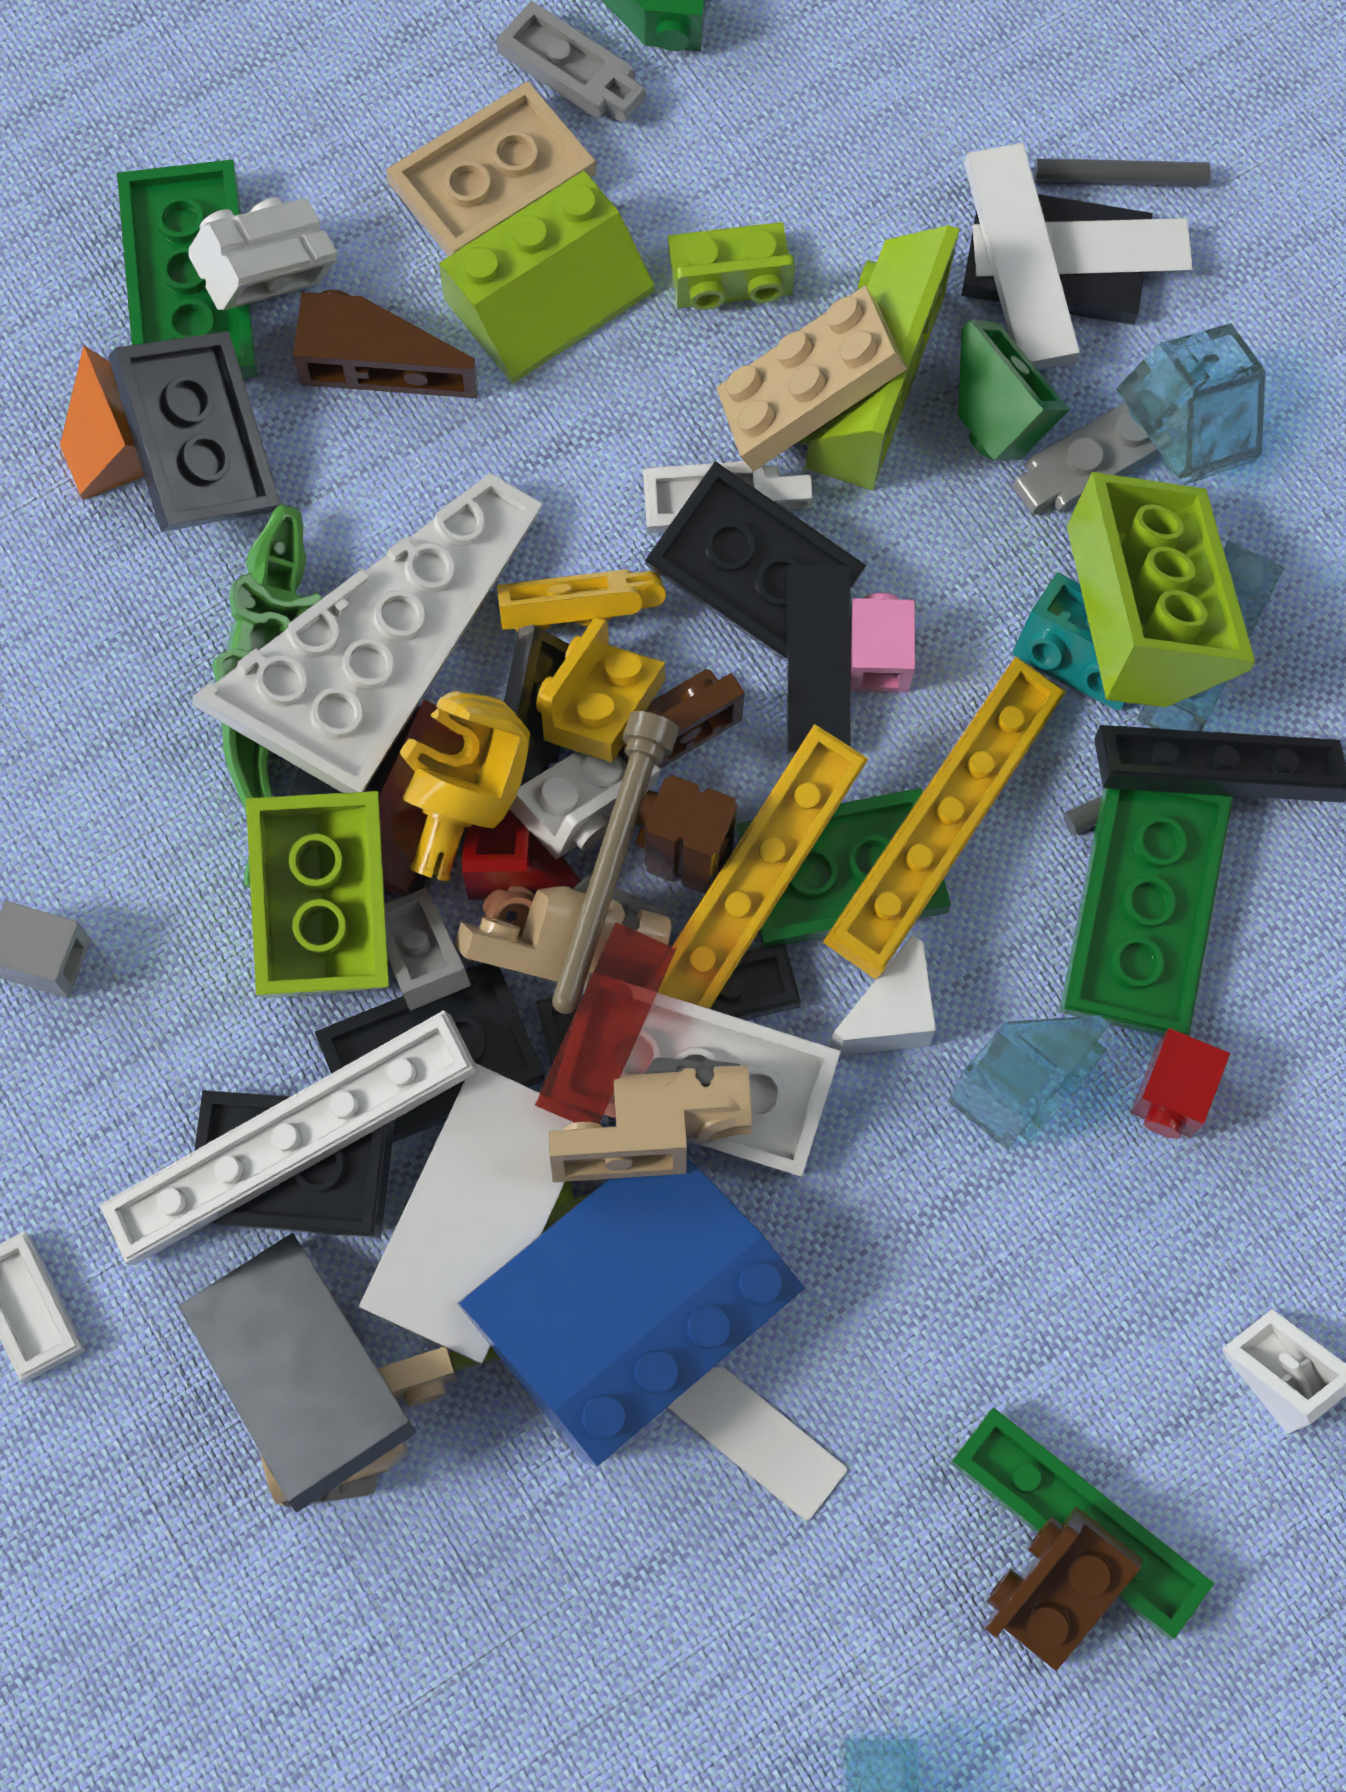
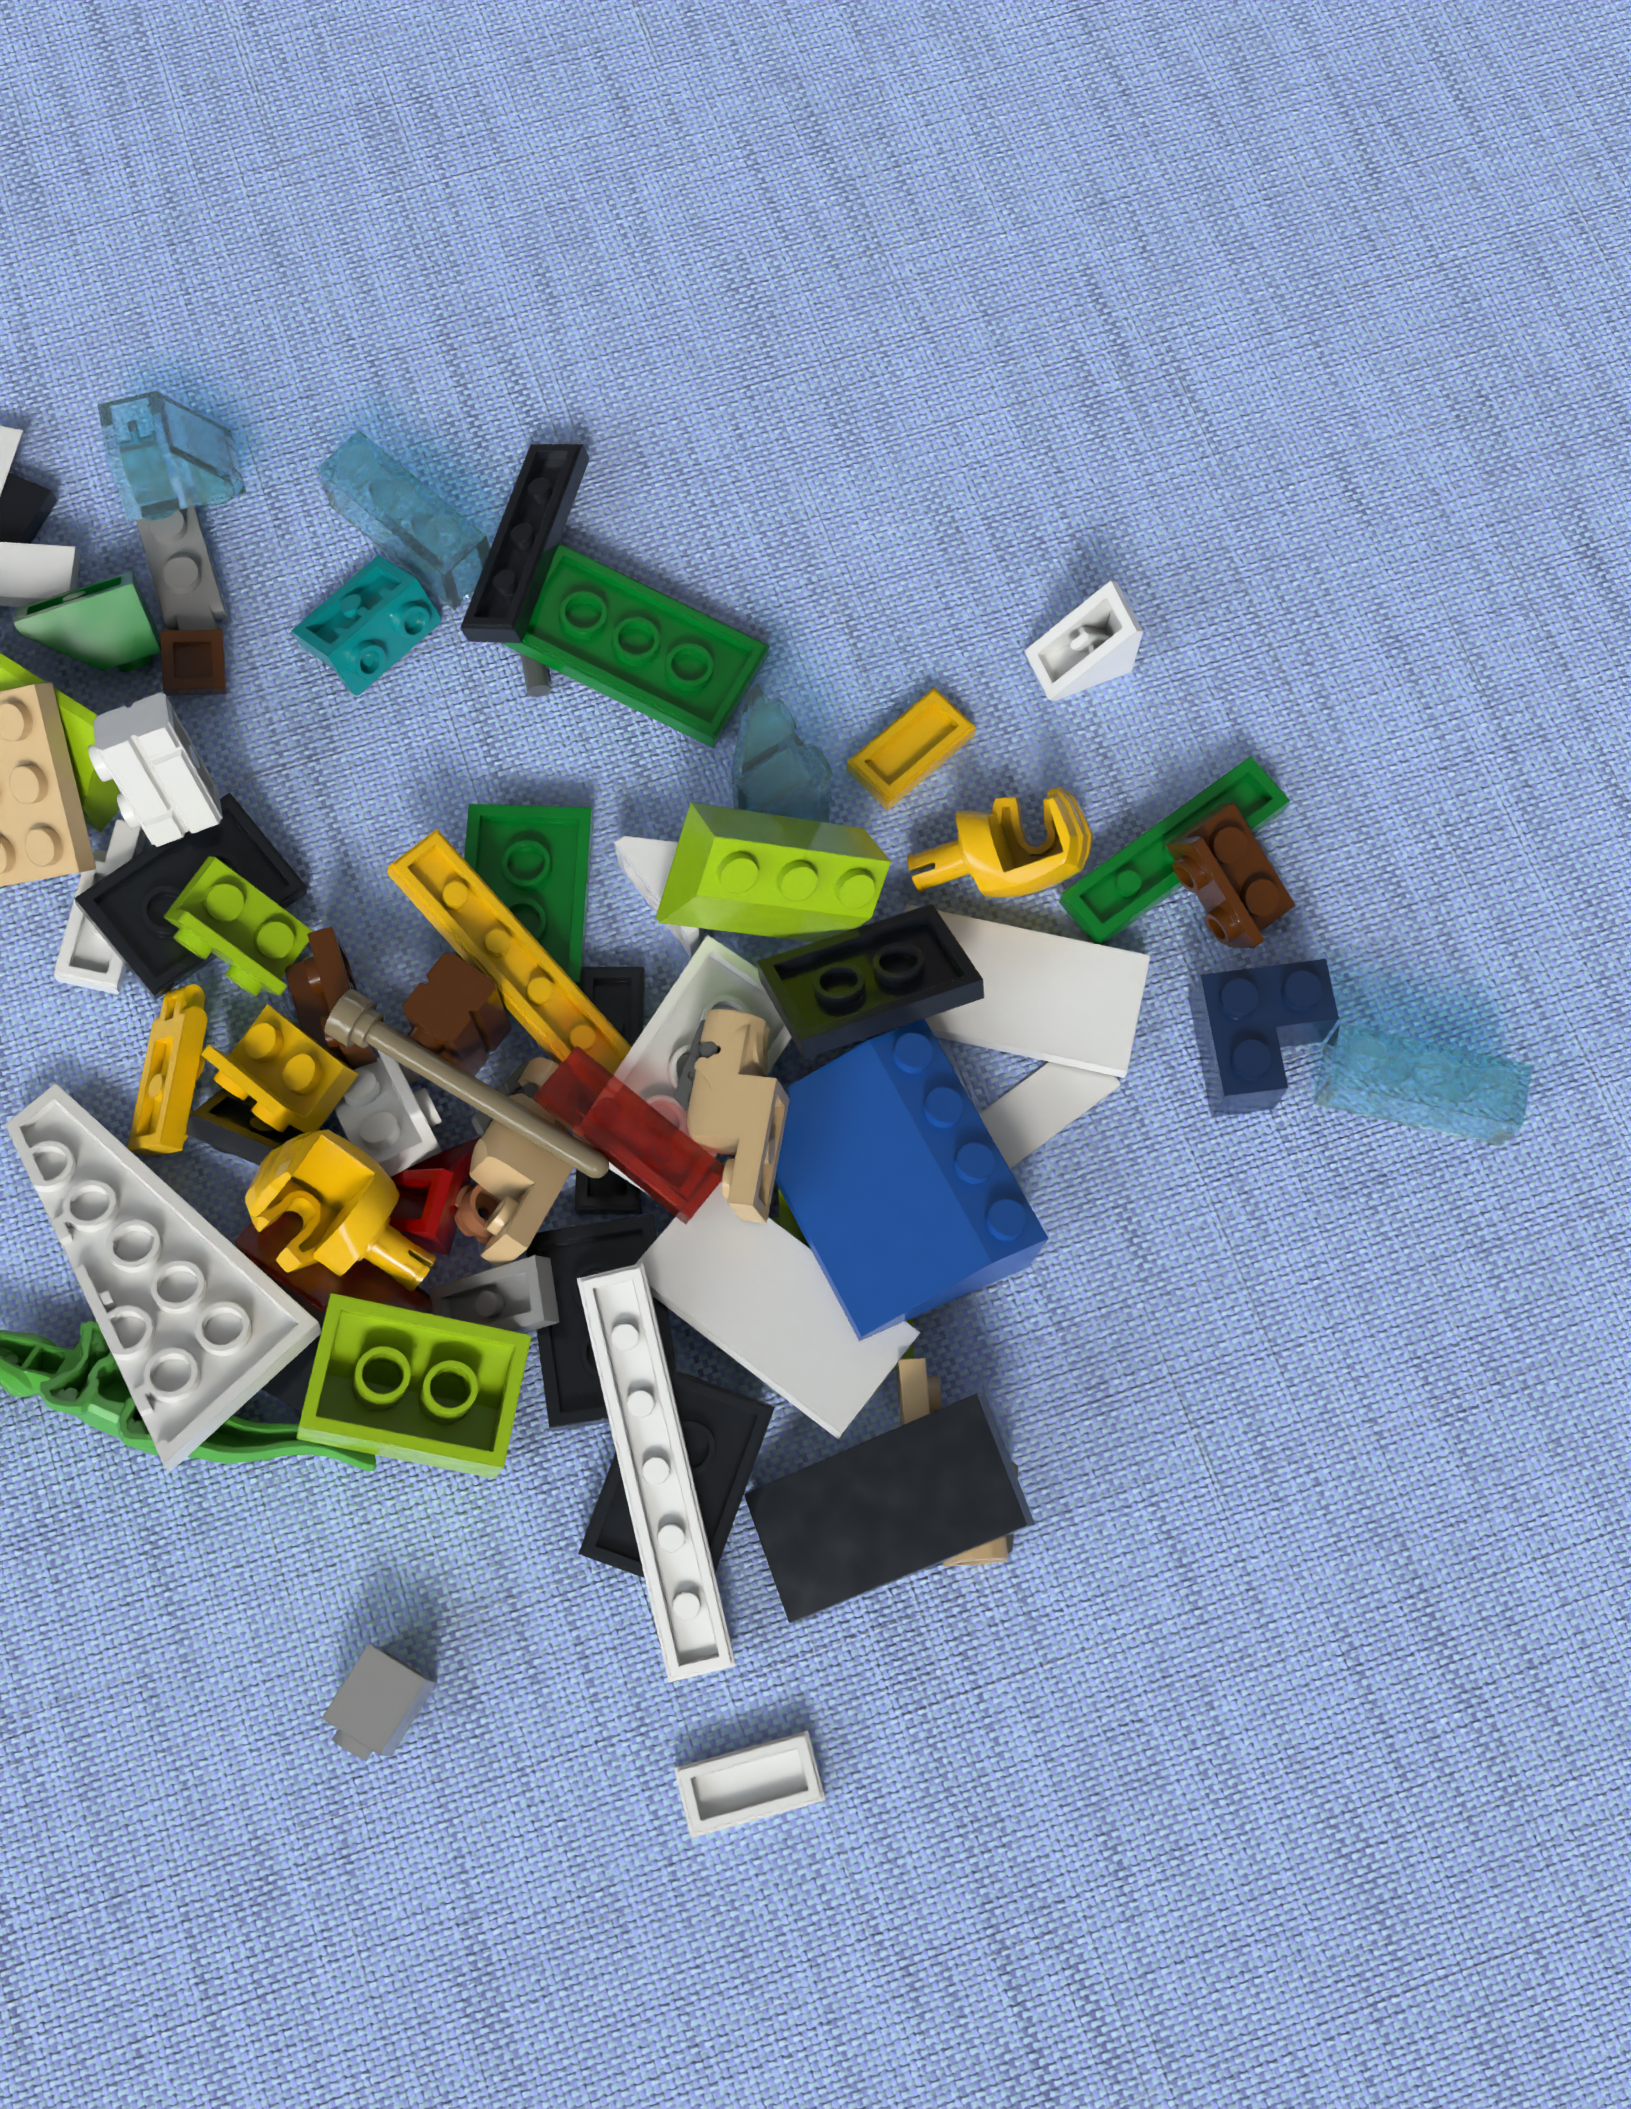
camera: 75 degrees left, 0 degrees up
(727, 612) = (238, 925): none -> lime bracket
(817, 652) = (307, 861): black tile -> none
(830, 1223) = (869, 980): none -> black plate
(853, 488) = (155, 769): none -> white brick
(877, 1385) = (1047, 996): none -> white tile
(882, 643) = (312, 803): bright pink brick -> none
(908, 1637) = (1244, 1022): none -> dark blue brick
(914, 1094) = (771, 875): none -> lime slope
(944, 819) = (506, 789): yellow tile -> none
(996, 494) = (193, 662): none -> reddish brown plate
(1020, 1332) = (1000, 857): none -> yellow piece
(1120, 1214) = (910, 748): none -> yellow tile
(1156, 590) = (345, 540): lime slope -> none
(1179, 1085) = (811, 663): red brick -> none

